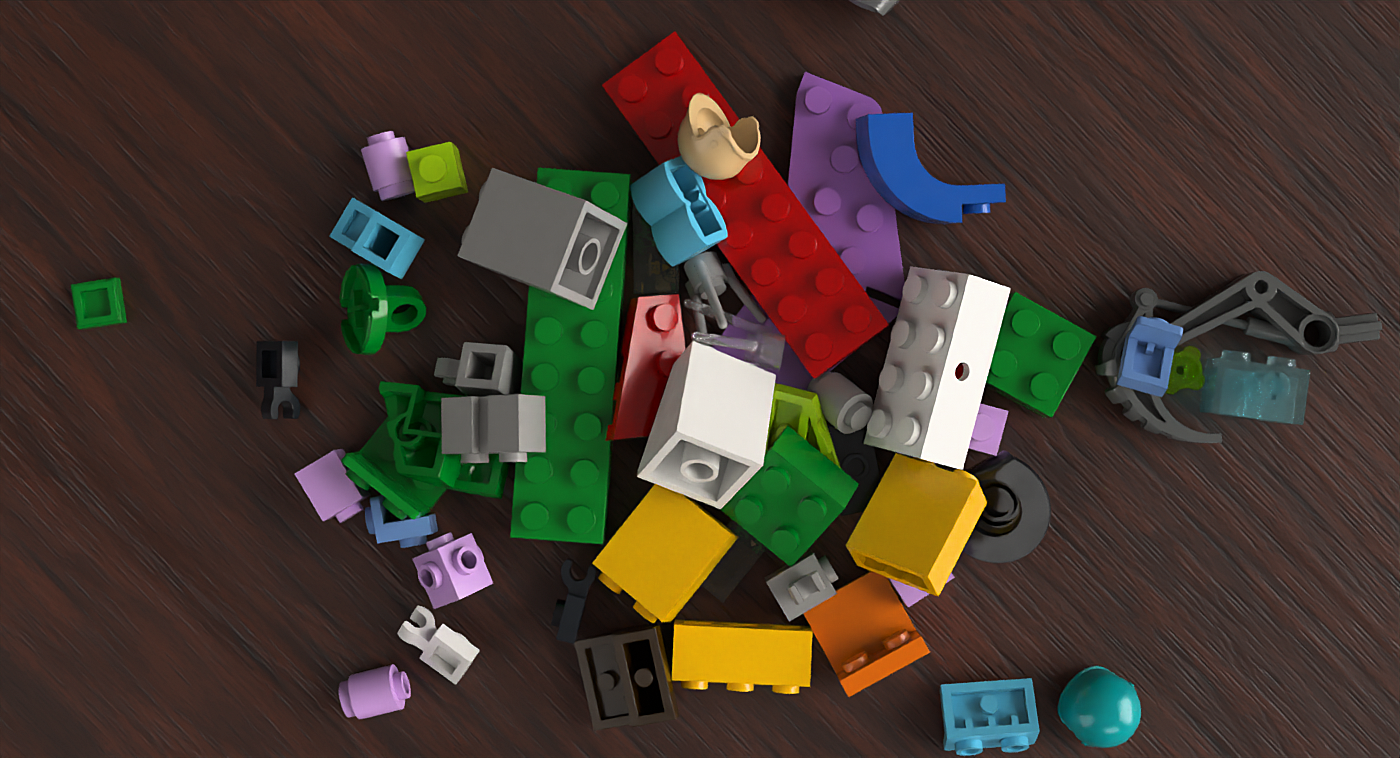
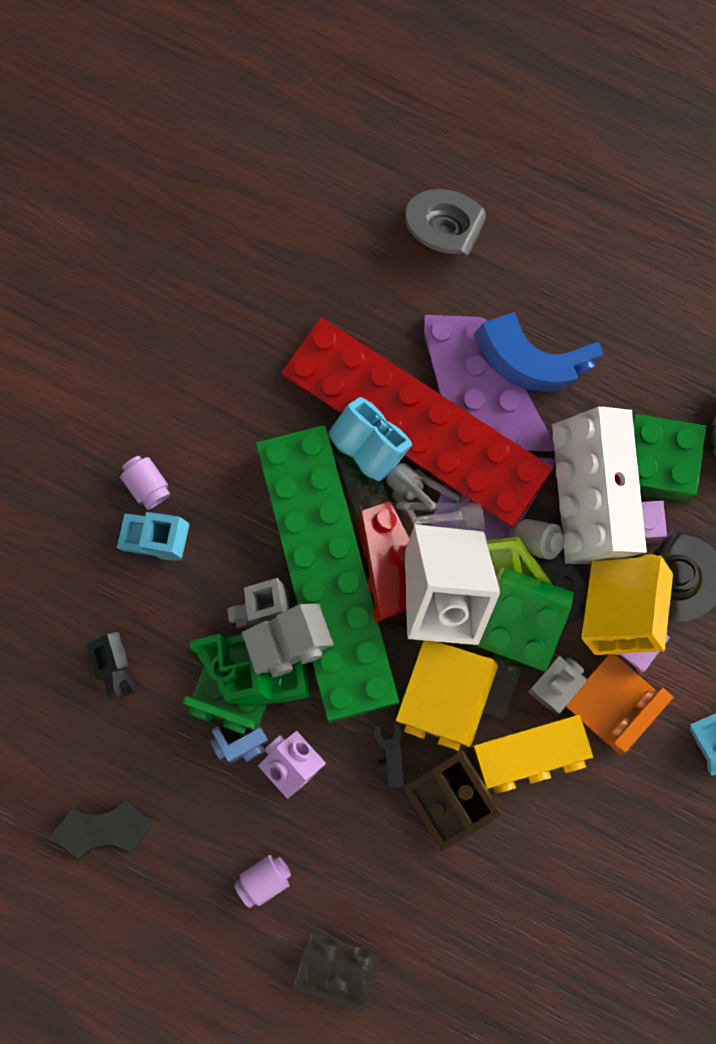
camera: 15 degrees left, 10 degrees down
(187, 562) = (84, 831): none -> pearl dark grey tile
(330, 488) = (180, 731): lavender brick -> none
(372, 306) = (163, 587): green tile -> none
(437, 172) = (182, 473): lime brick -> none
(442, 647) = (305, 828): white plate -> none
(542, 238) = (278, 487): light grey slope -> none
(711, 144) = (380, 381): tan helmet -> none

